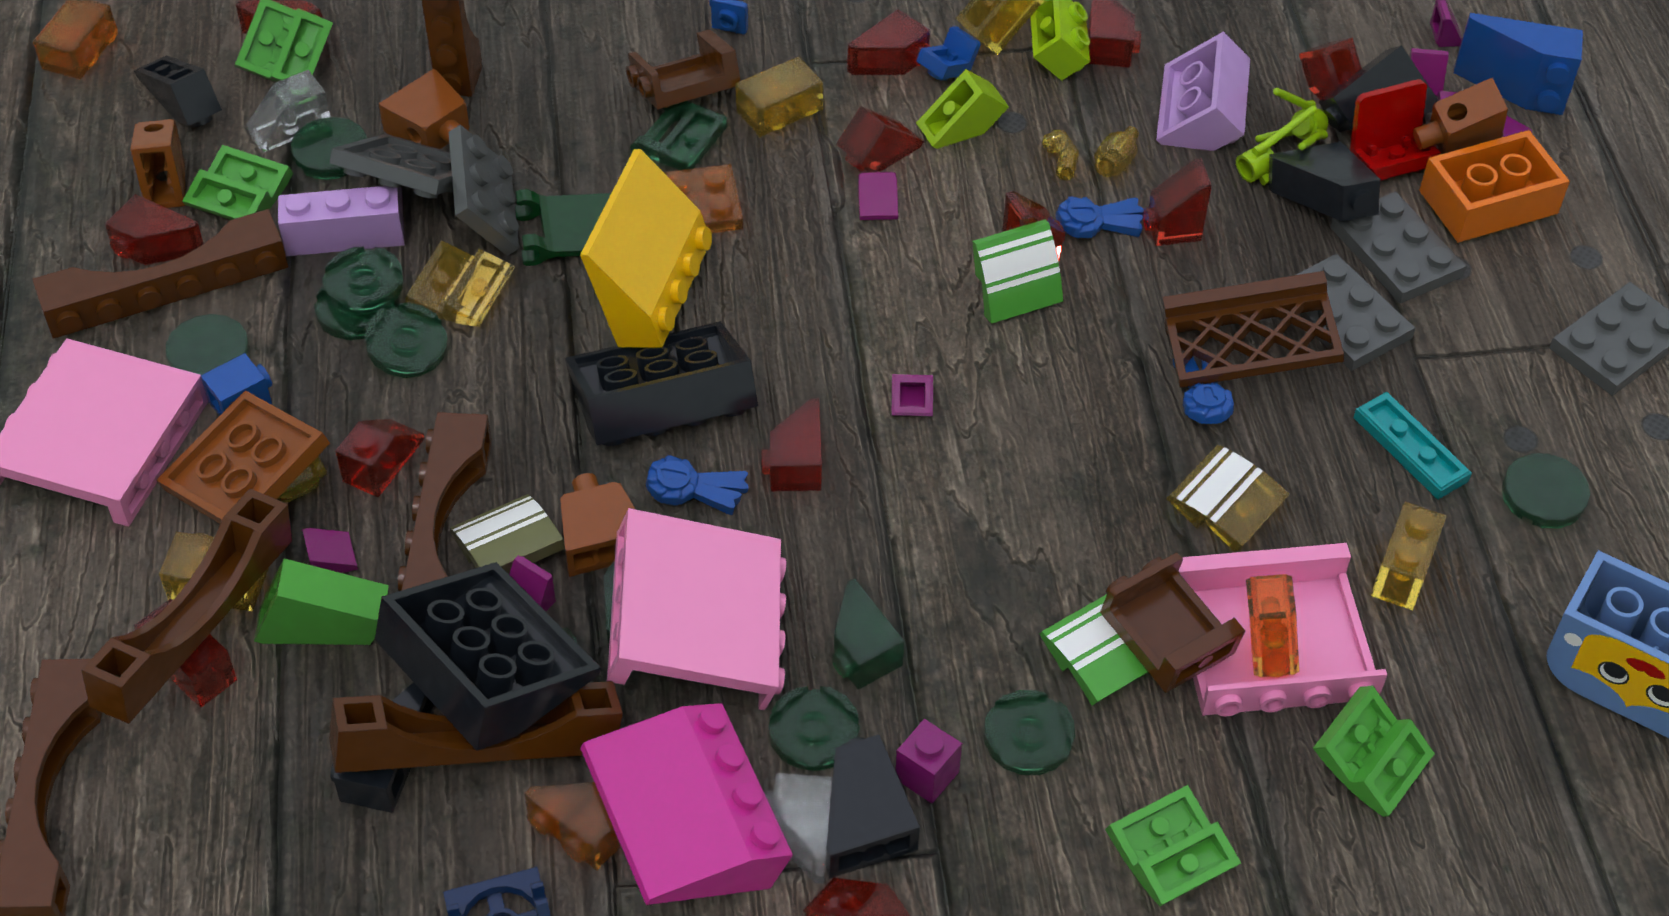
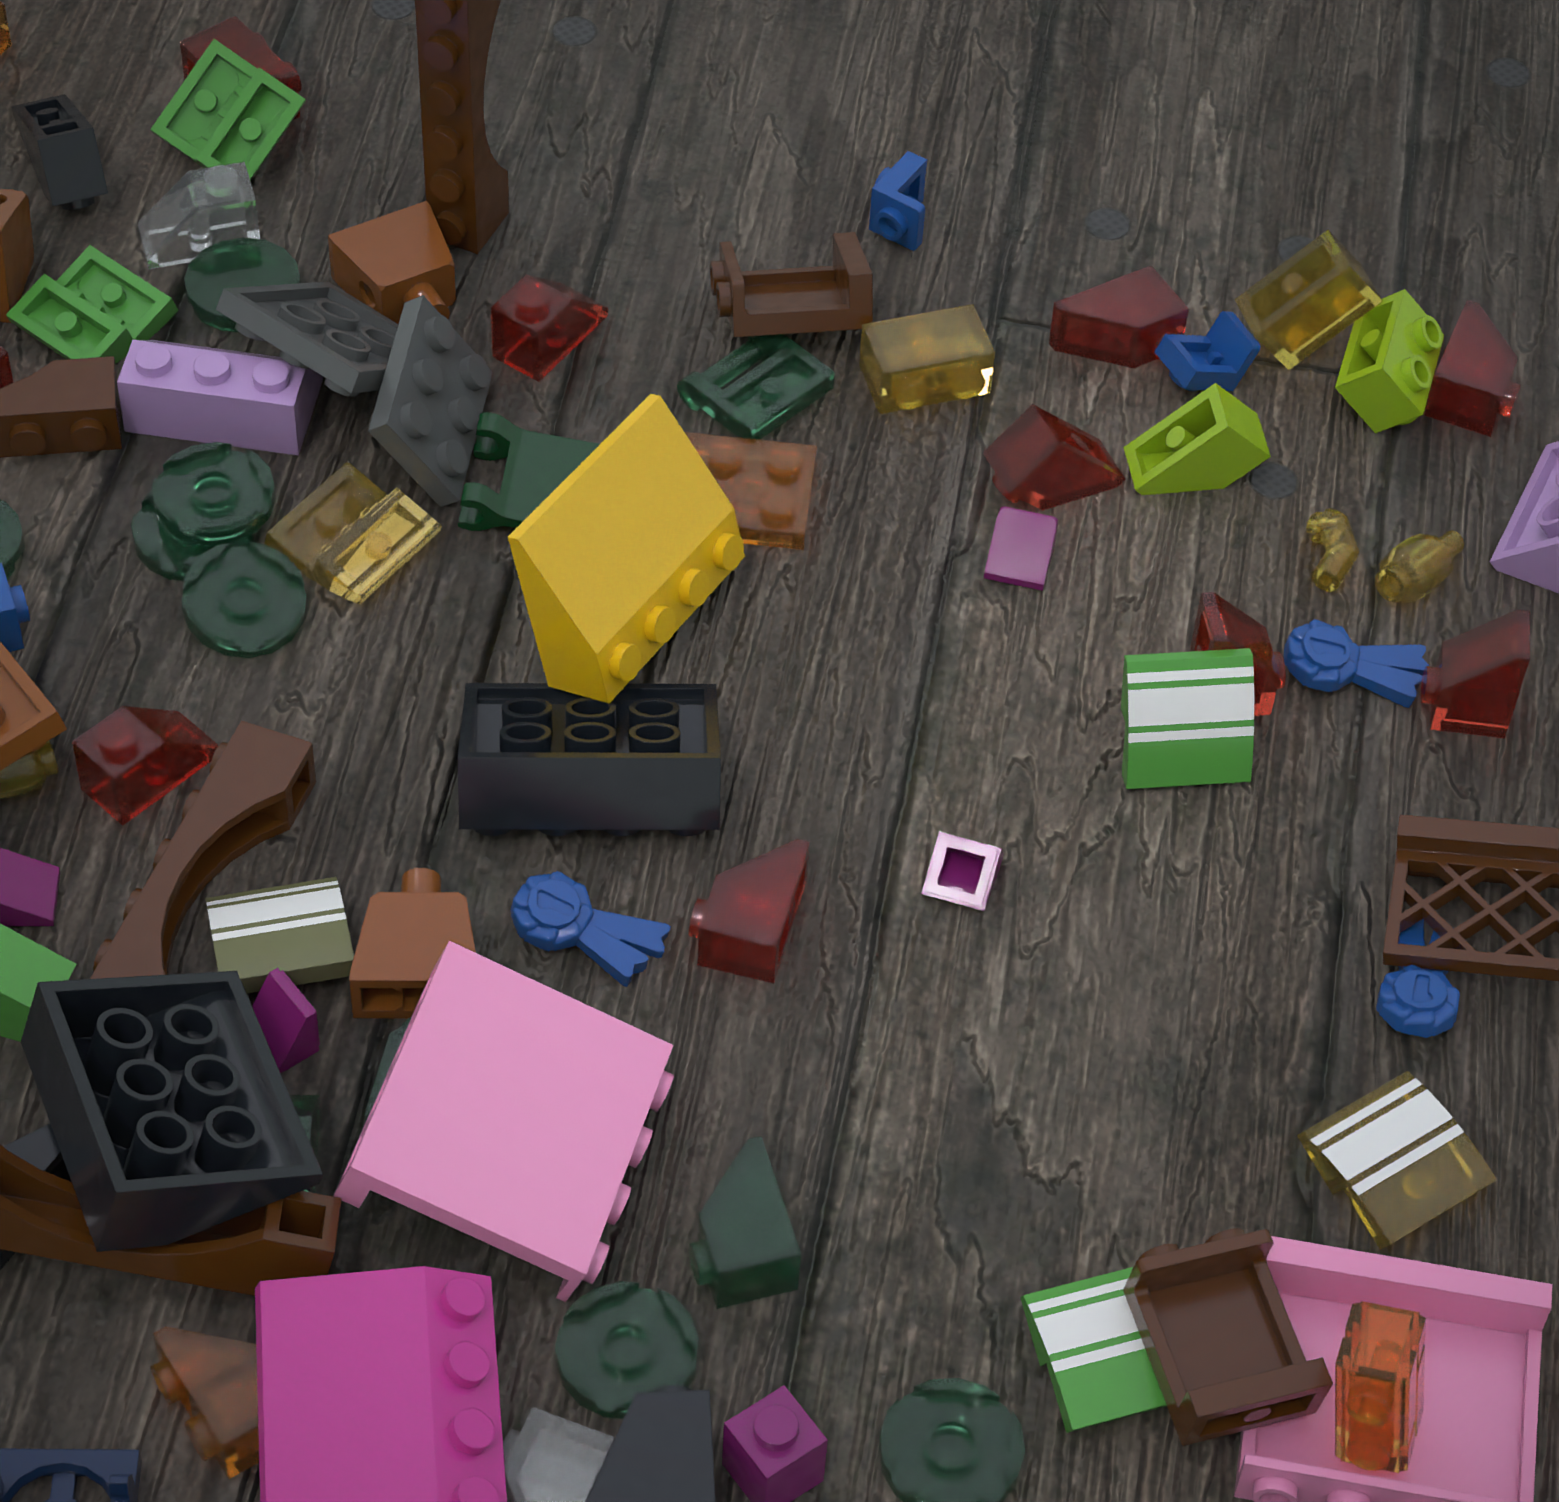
camera: 15 degrees right, 0 degrees up
(531, 130) = (541, 324): none -> clear red slope

